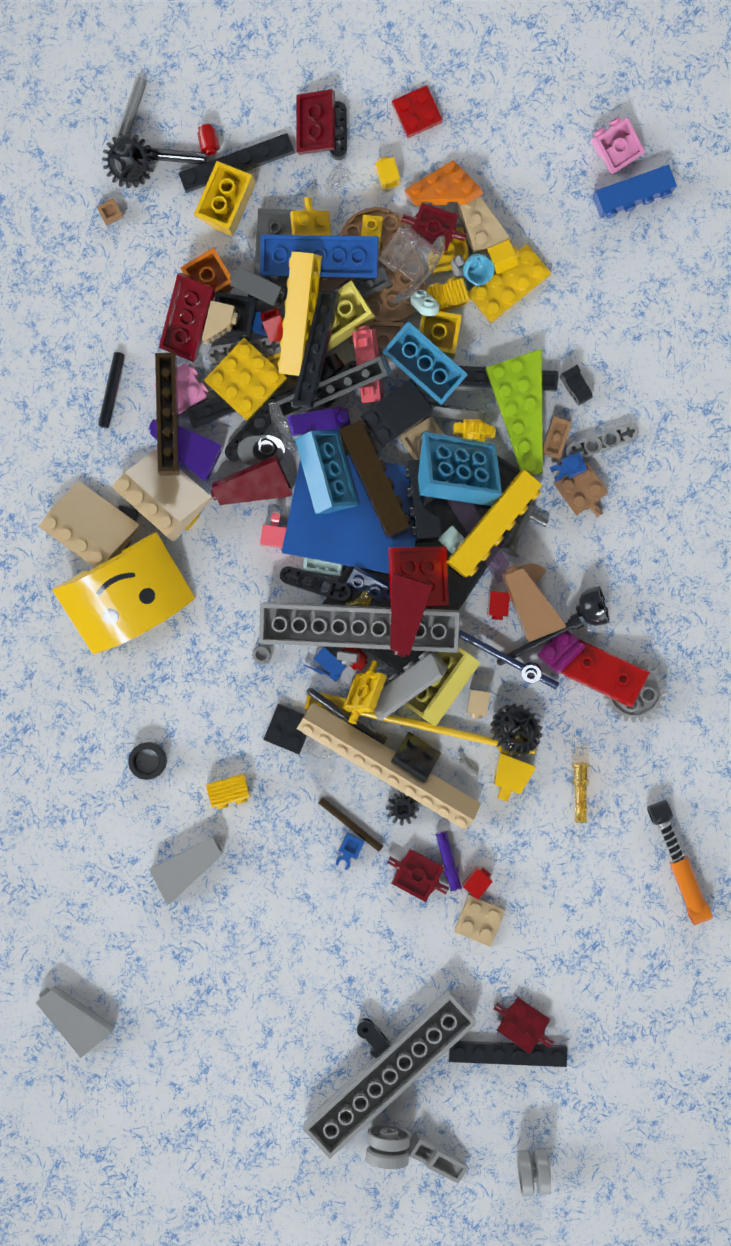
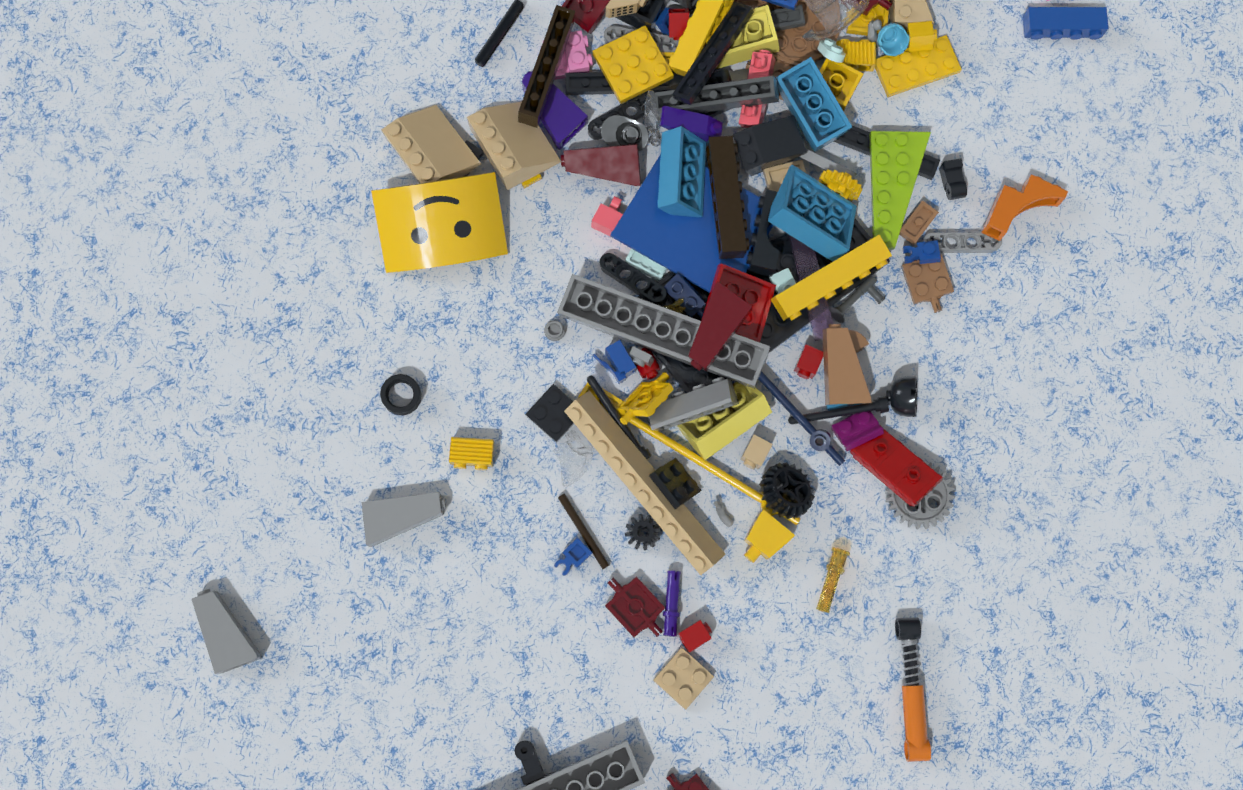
camera: 15 degrees right, 10 degrees down
(635, 390) = (1011, 203): none -> orange arch

